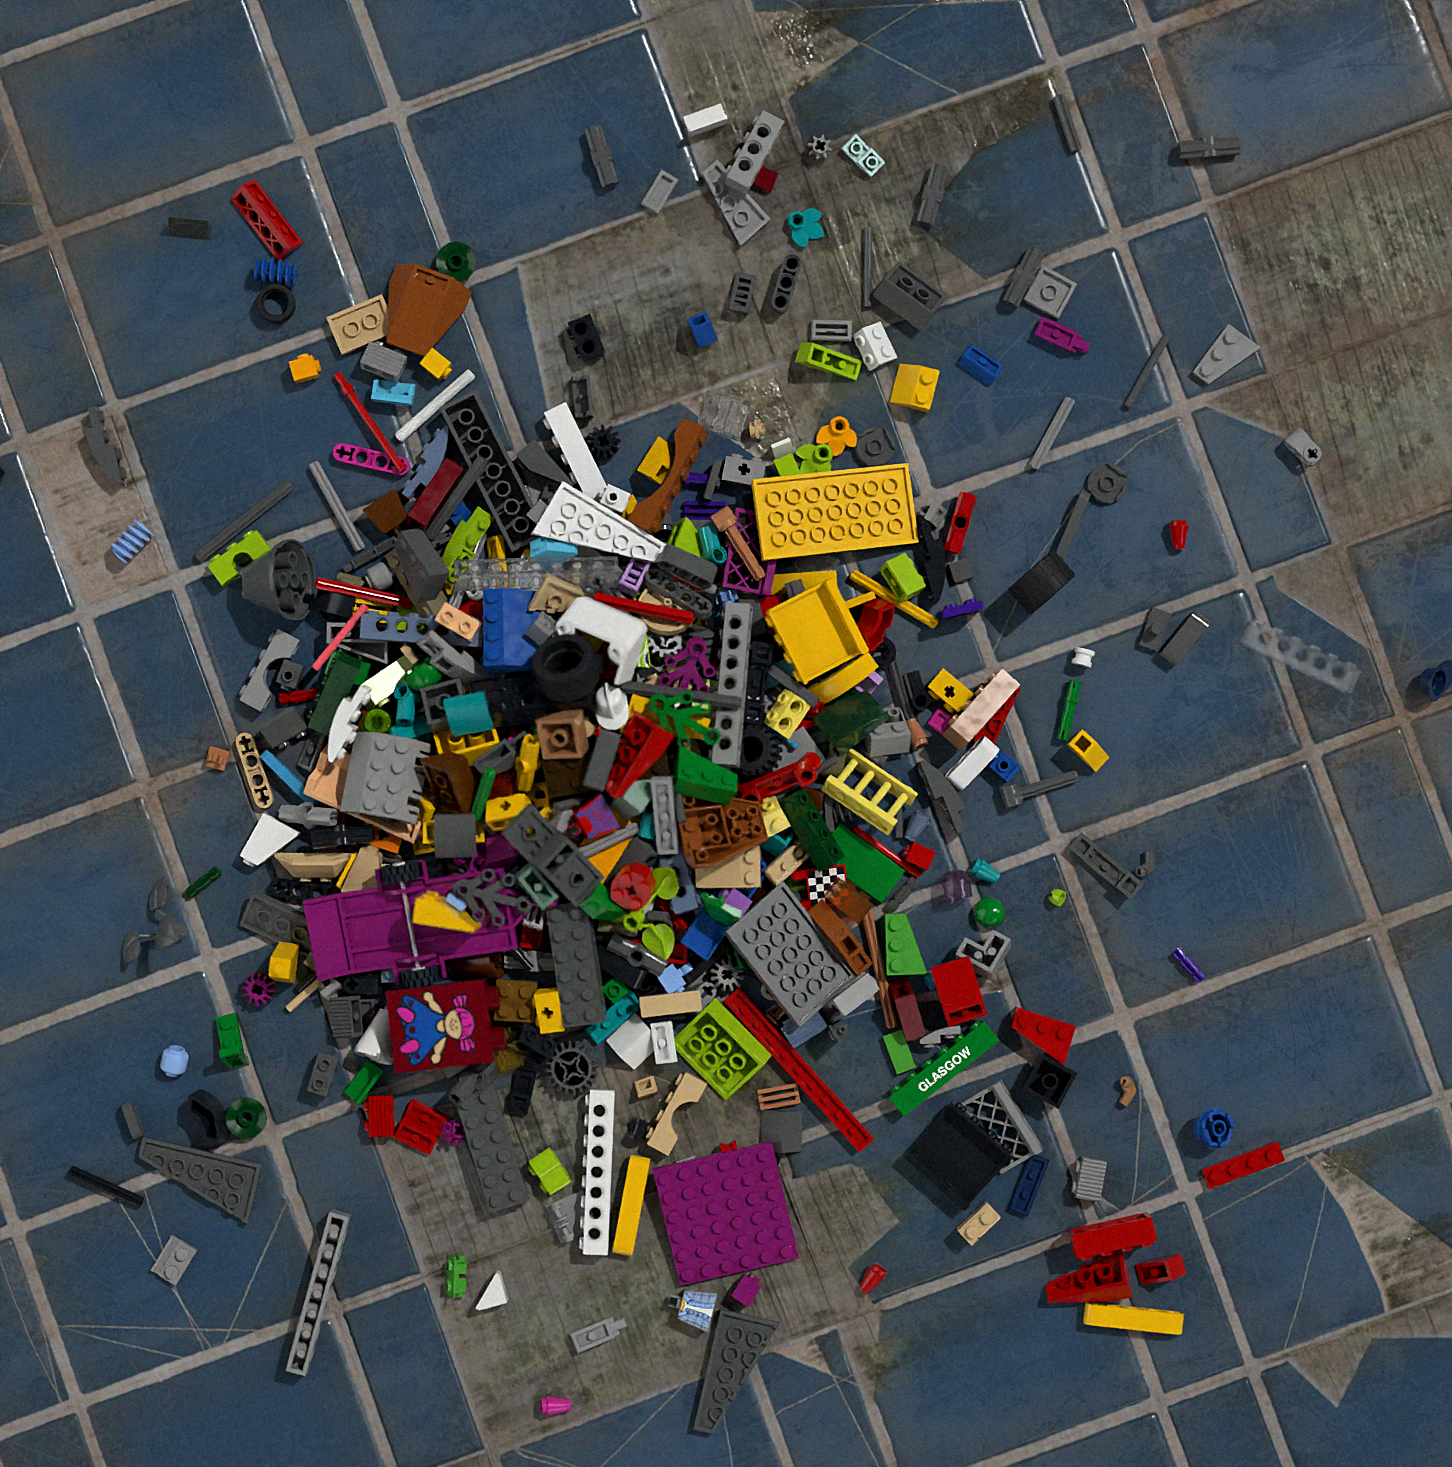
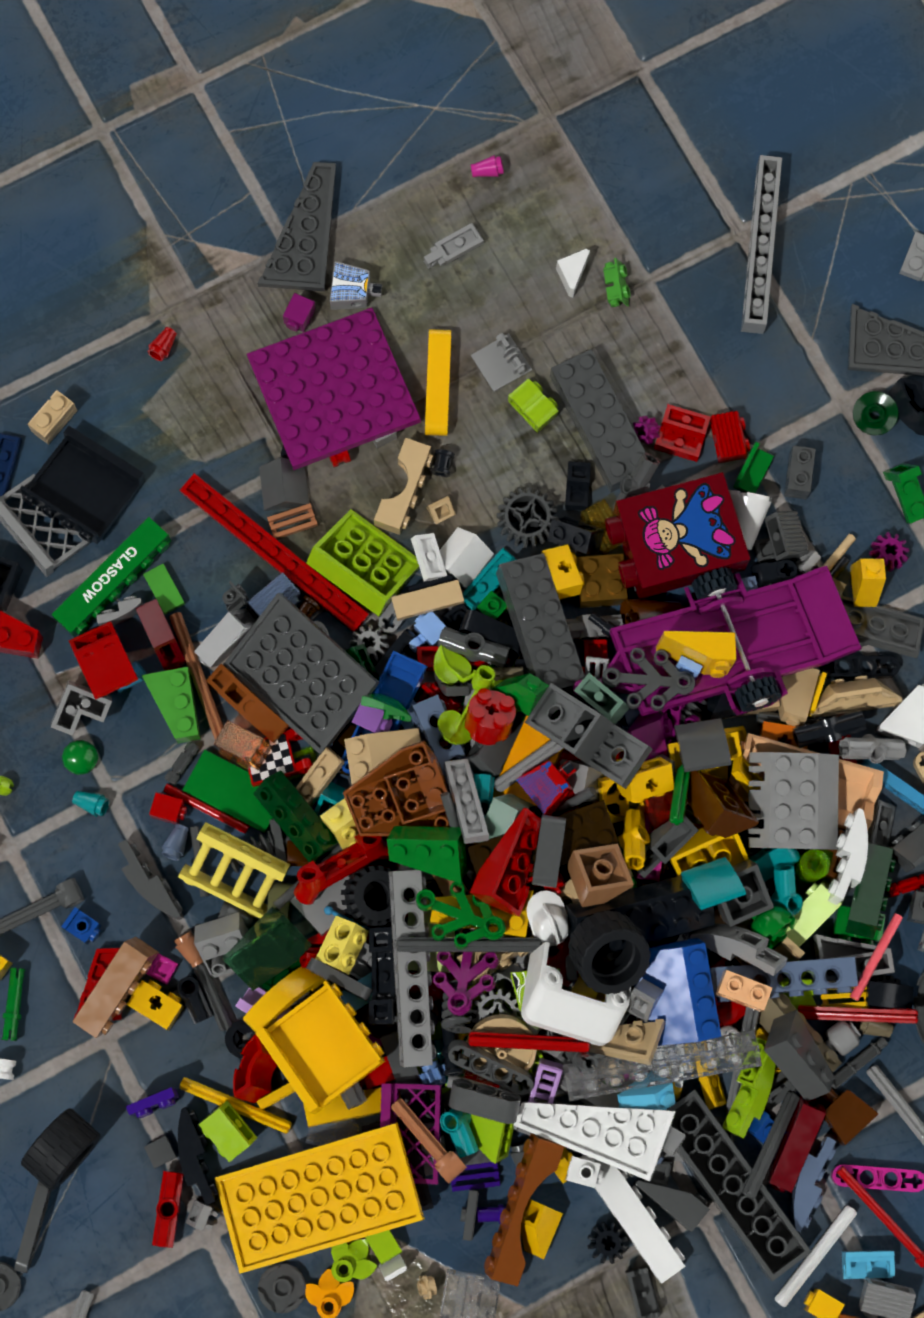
camera: 175 degrees right, 10 degrees down
(598, 1245) = (467, 334): white brick -> none
(732, 474) = (446, 1224): light grey brick -> none
(956, 886) = (121, 780): clear purple helmet -> none
(972, 763) = (119, 923): white beam -> none

